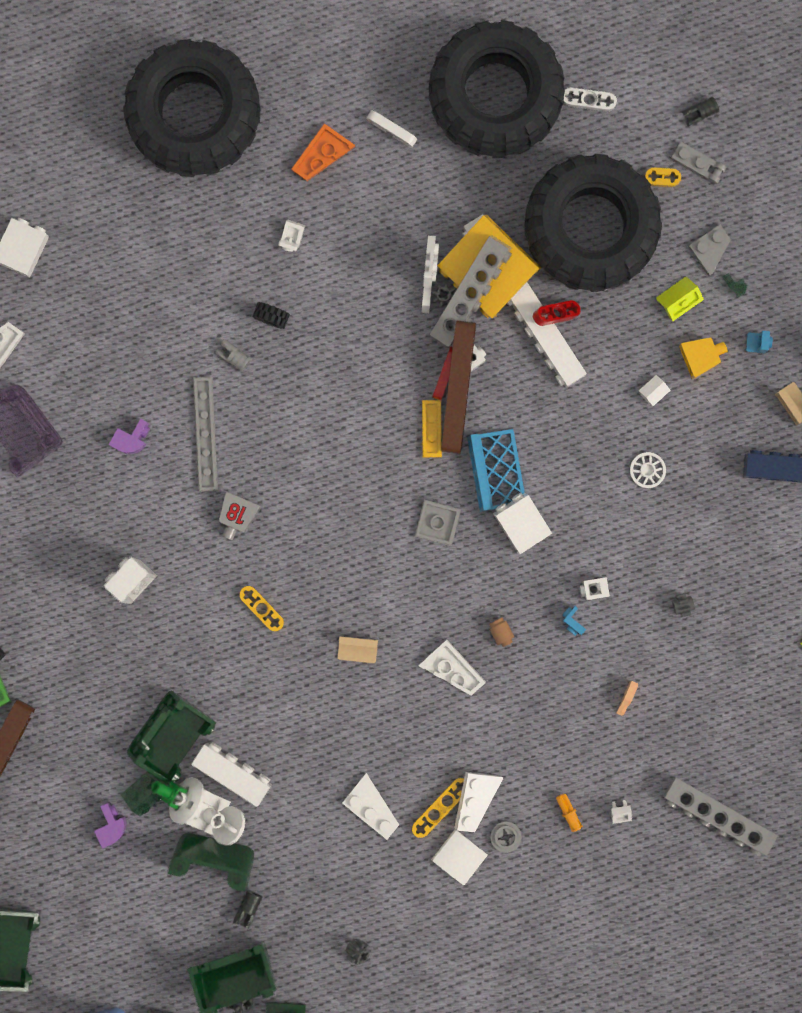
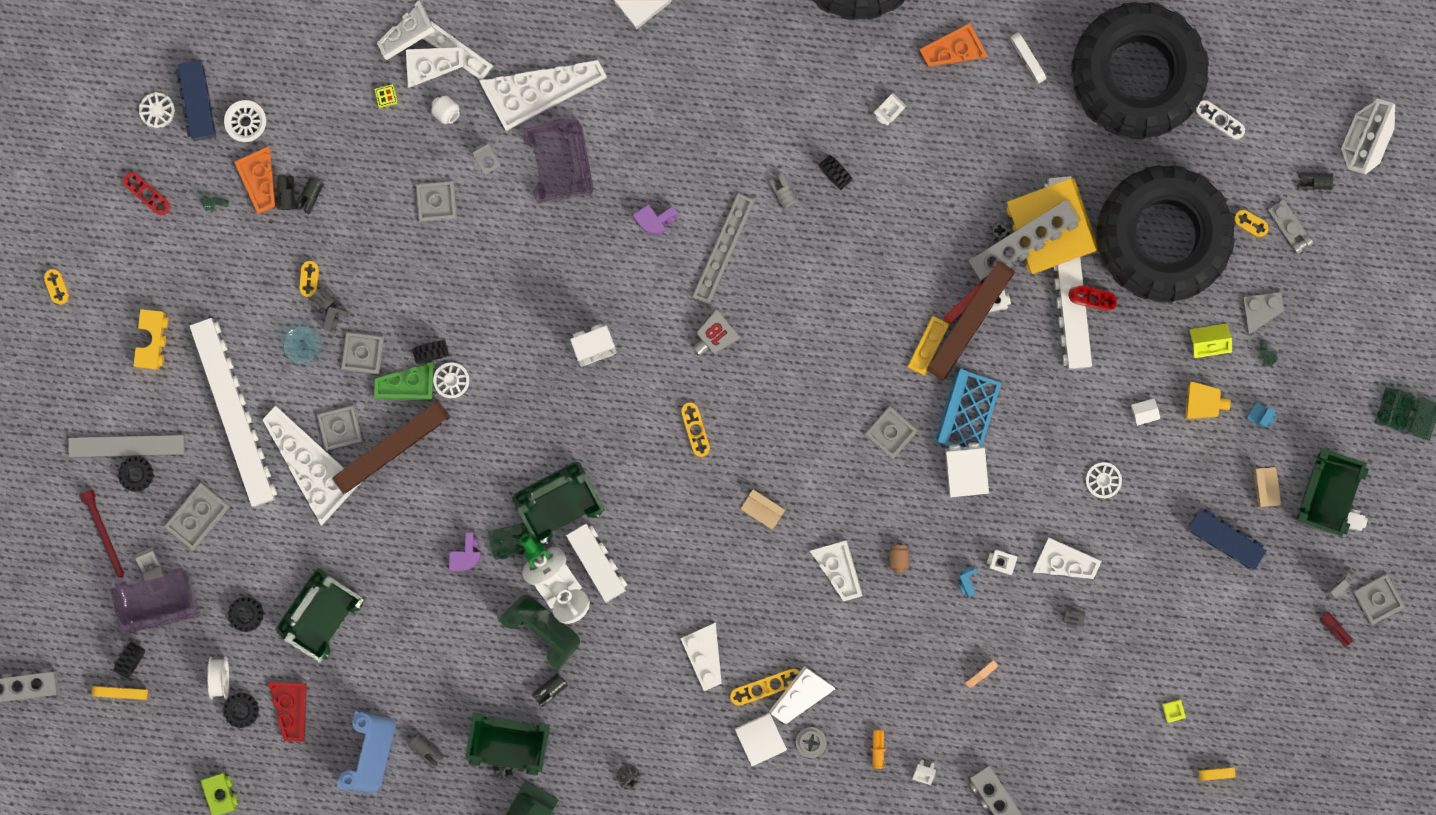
camera: 30 degrees right, 0 degrees up
(19, 675) = (451, 380): none -> white wheel
(430, 272) = (997, 205): white wing -> none
(651, 558) = (1064, 560): none -> white wing
(727, 47) = (1369, 136): none -> white wedge

